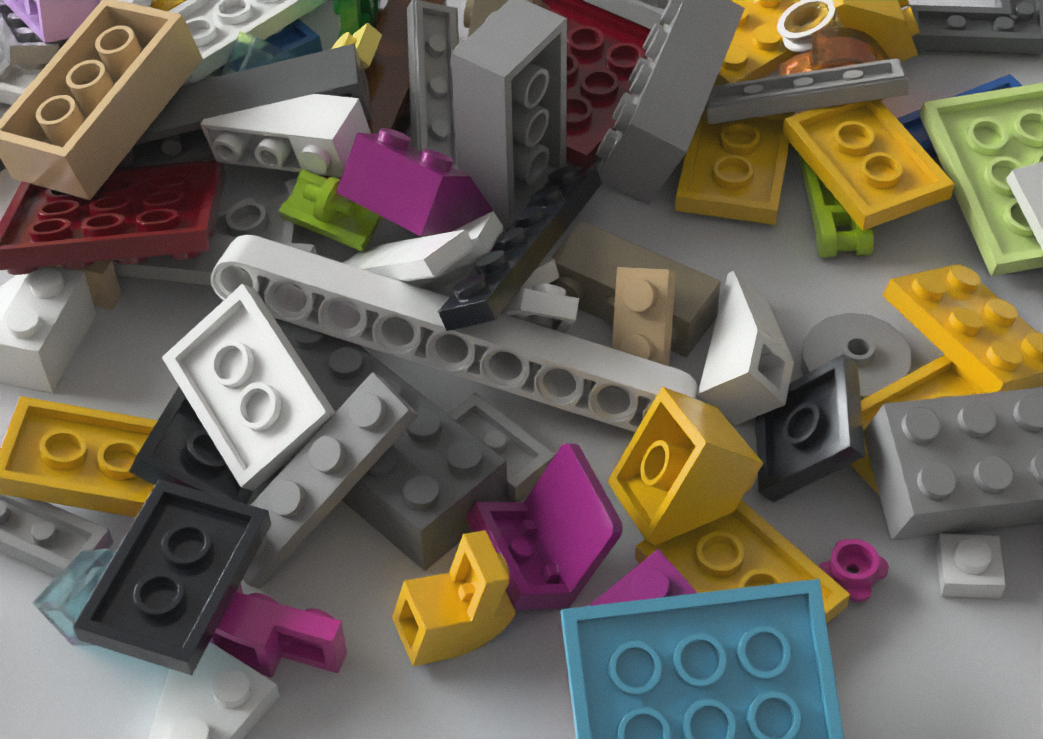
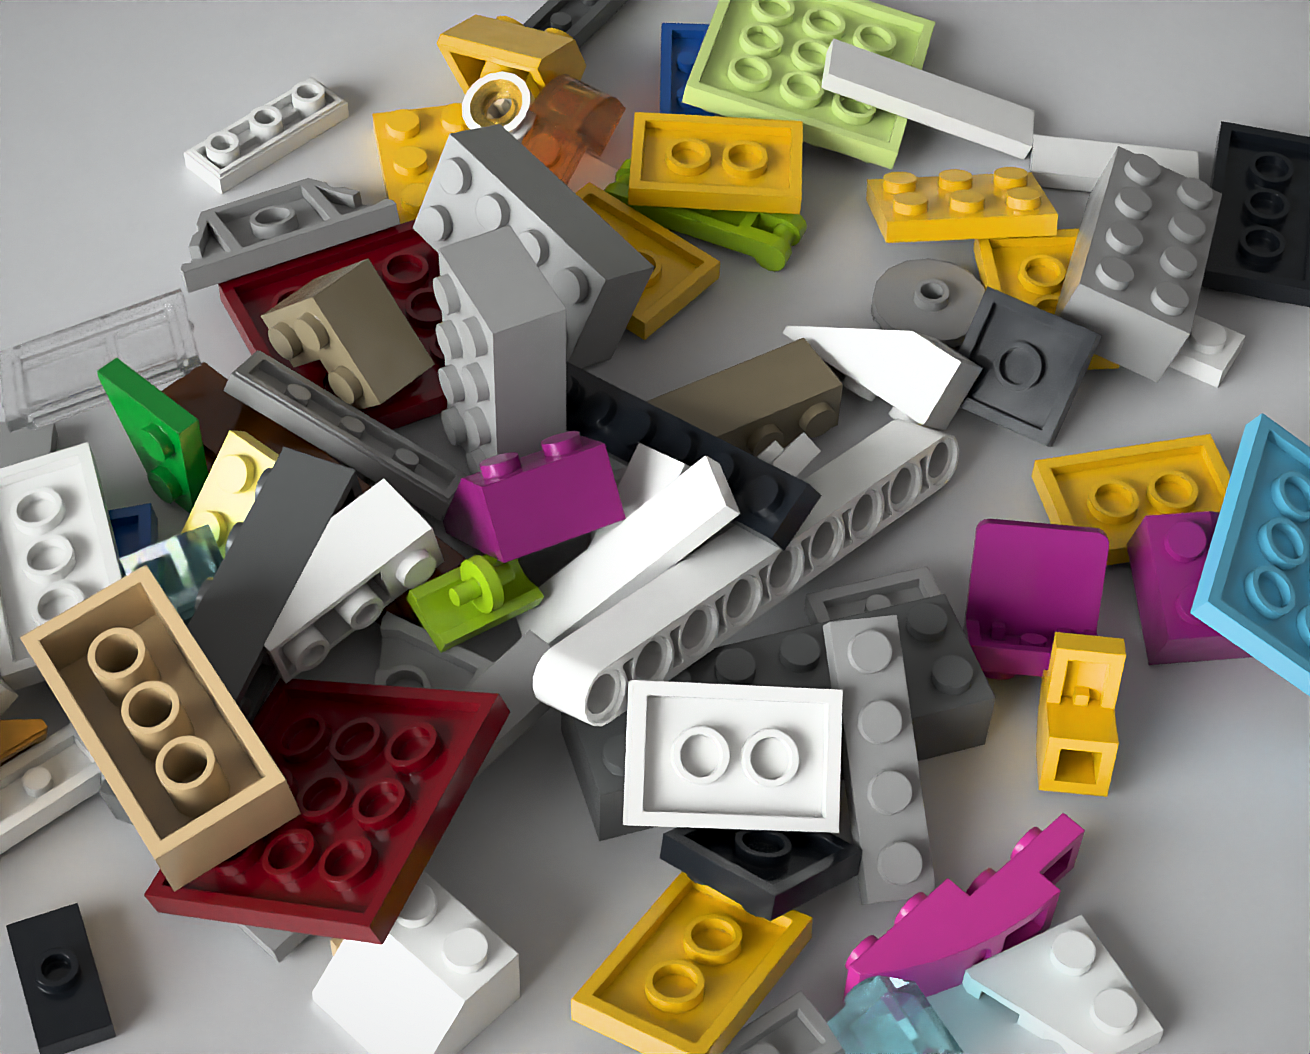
camera: 65 degrees left, 0 degrees up
(173, 576) = (948, 926): black plate -> none
(644, 313) = (806, 402): tan plate -> none
(682, 468) = (1019, 467): yellow slope -> none
(806, 91) = (616, 135): light grey tile -> none
(858, 556) = (1169, 418): dark pink plate -> none

